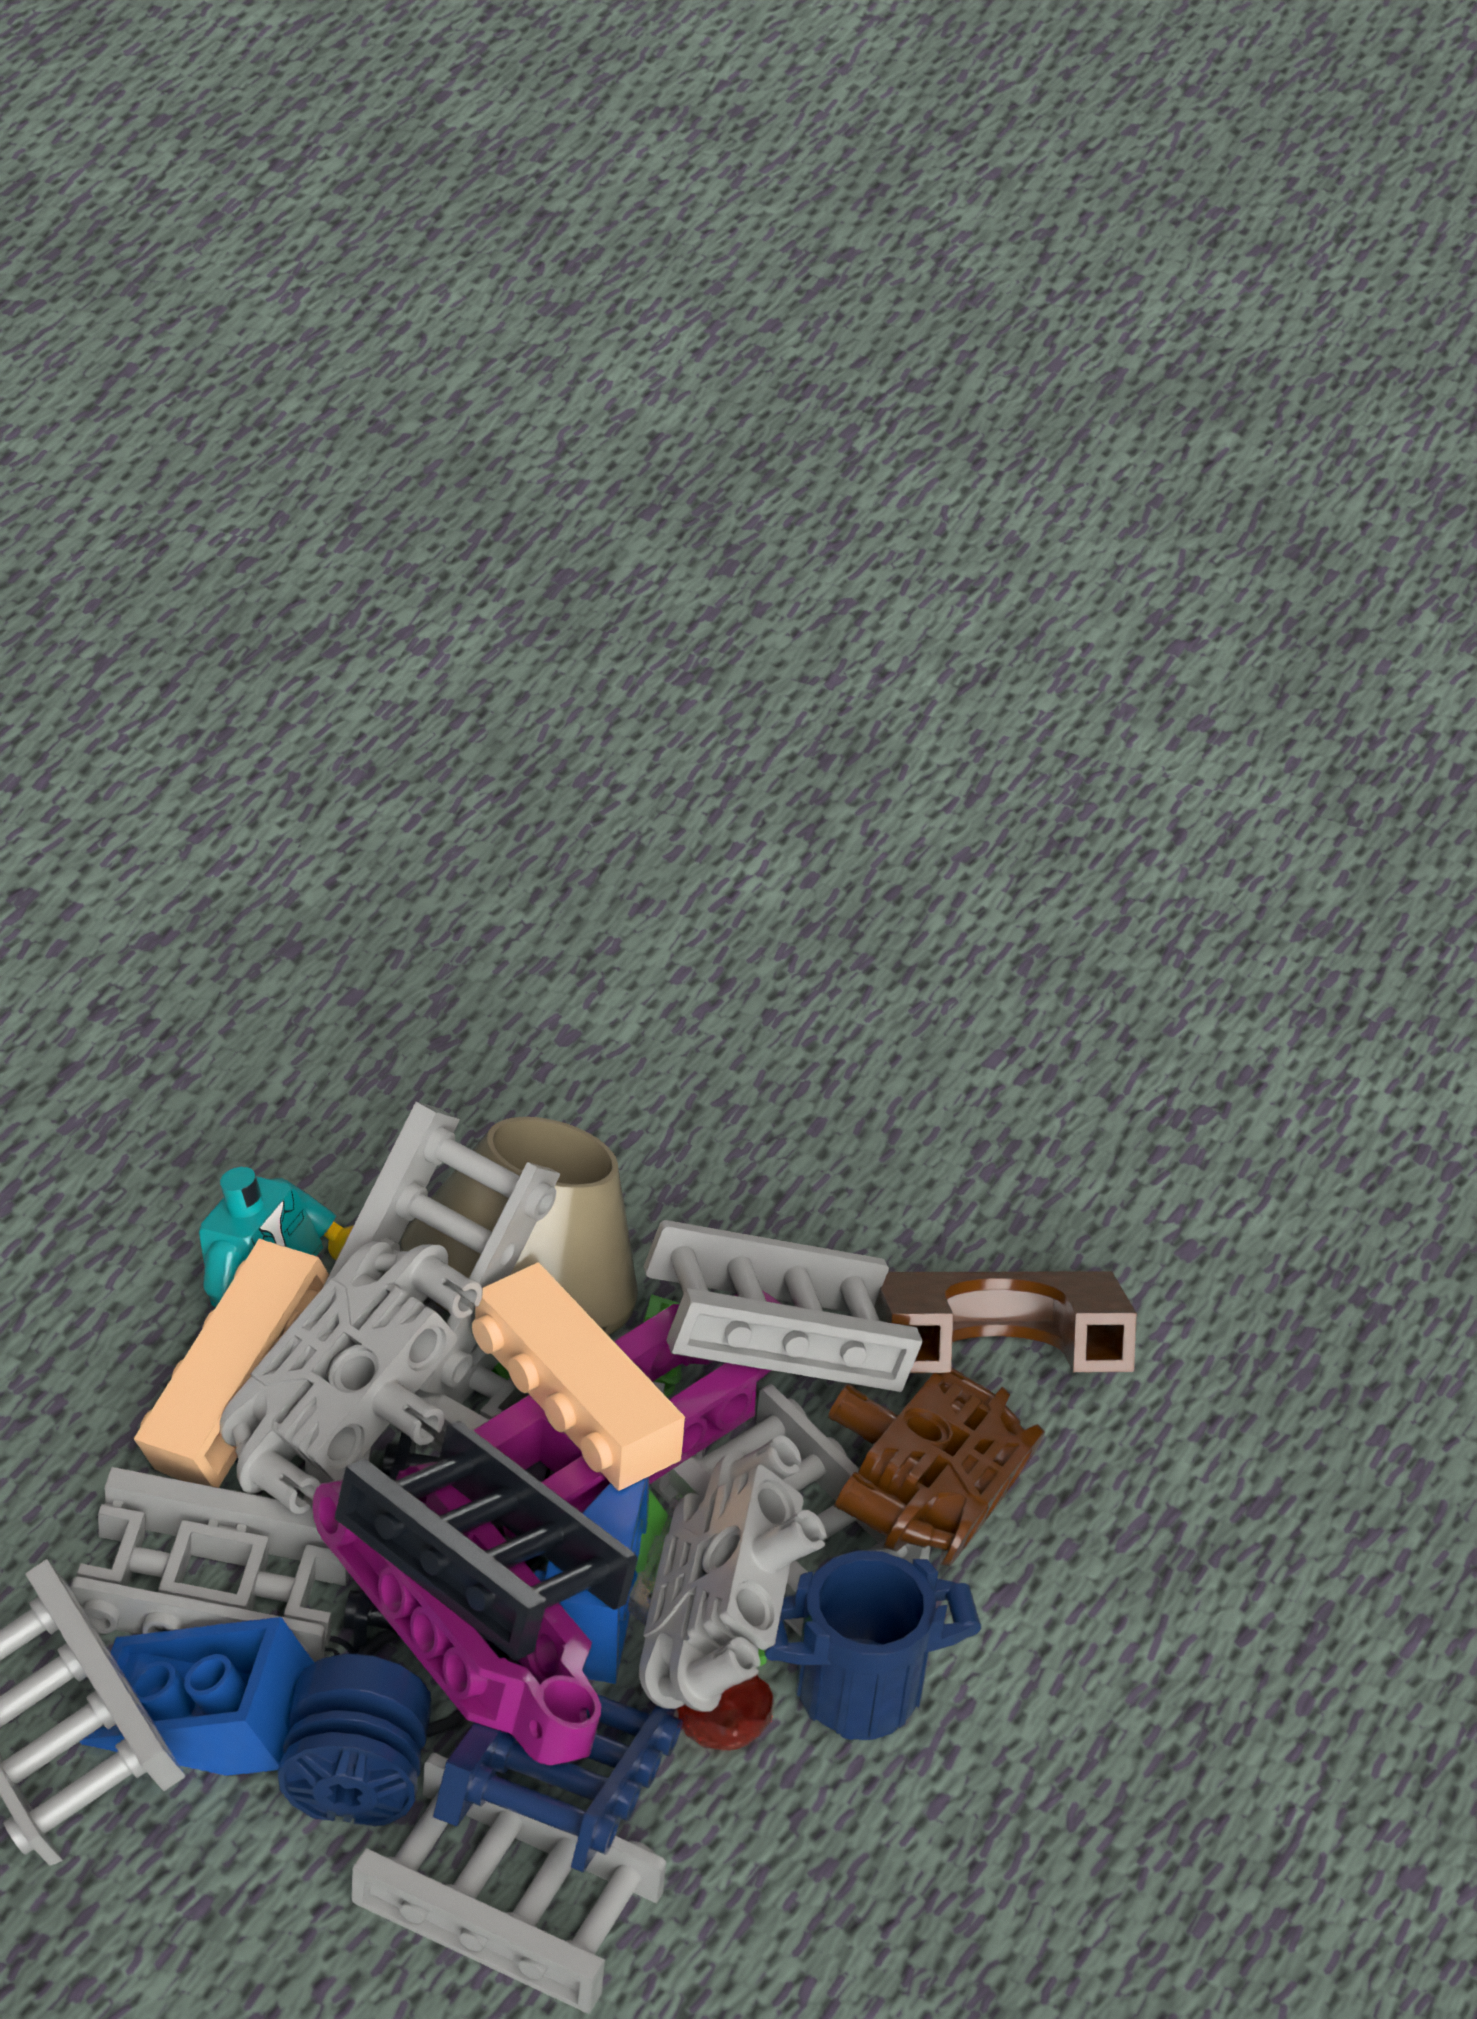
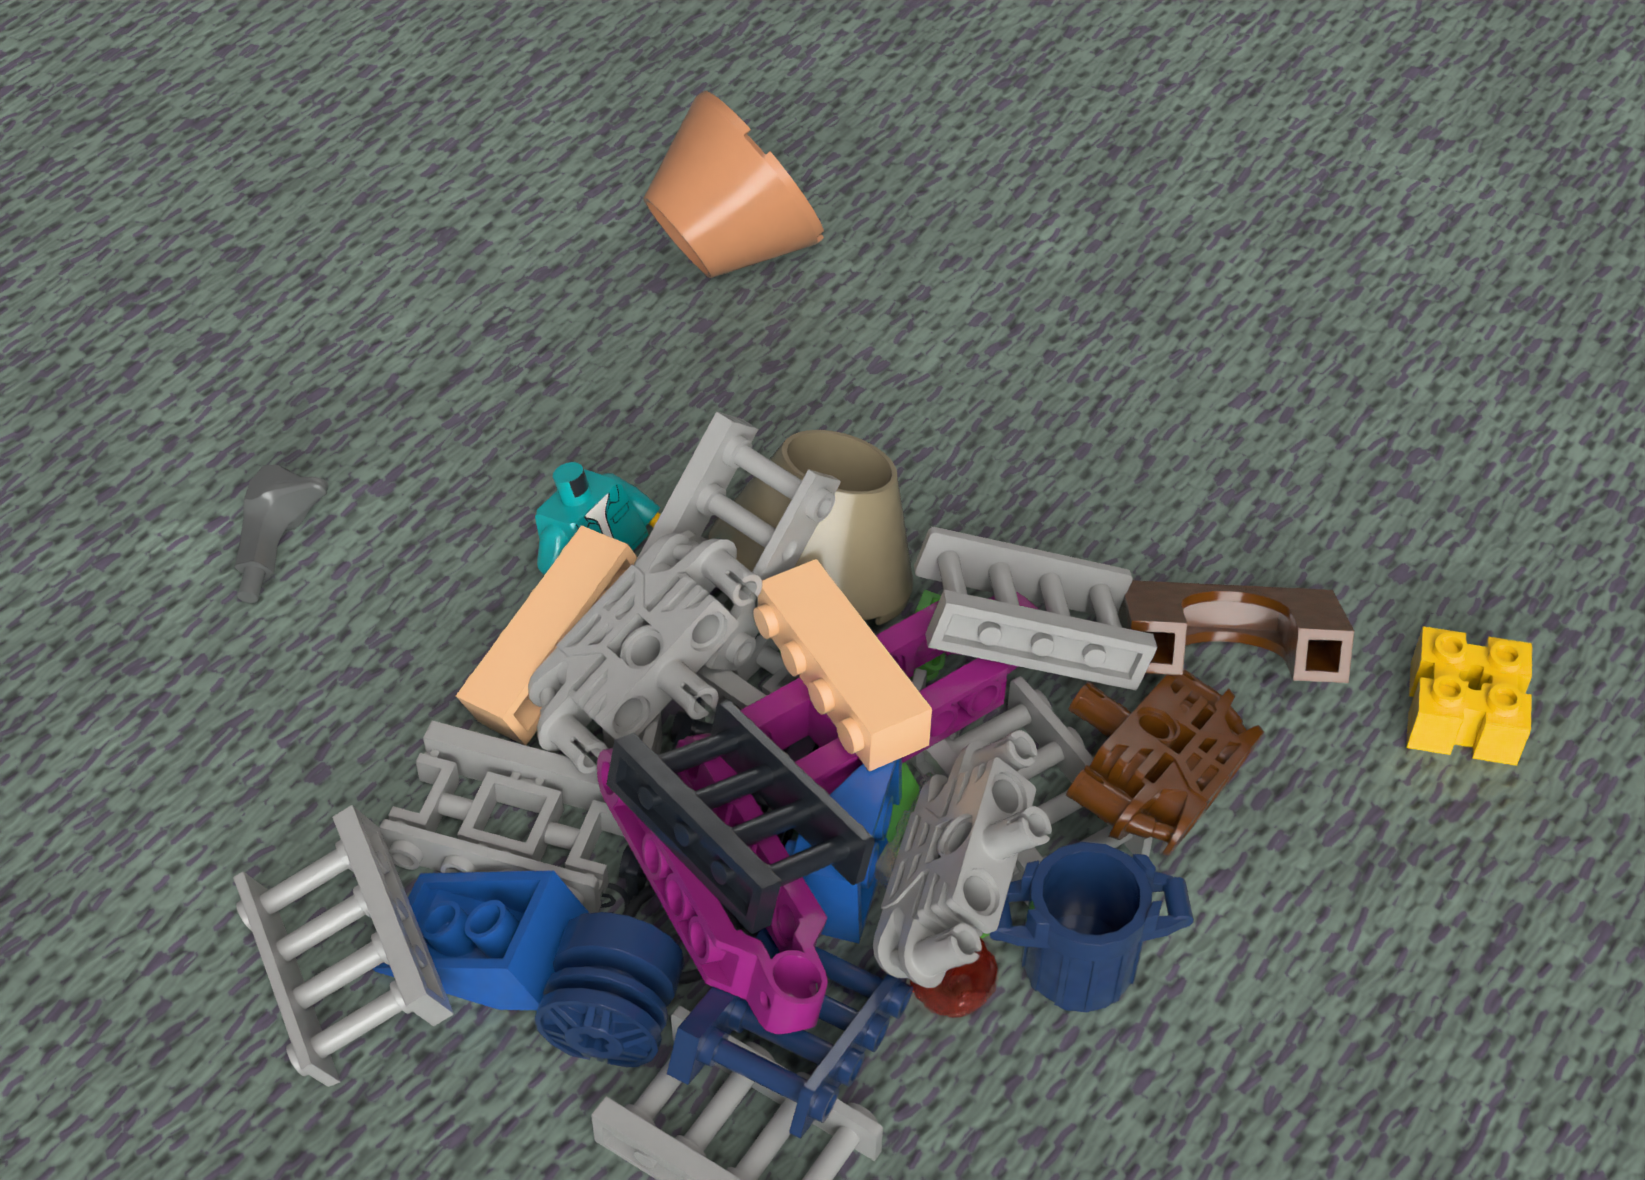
camera: 10 degrees right, 5 degrees up
(371, 841) = (727, 197): none -> nougat cone
(1268, 1380) = (1470, 695): none -> yellow brick

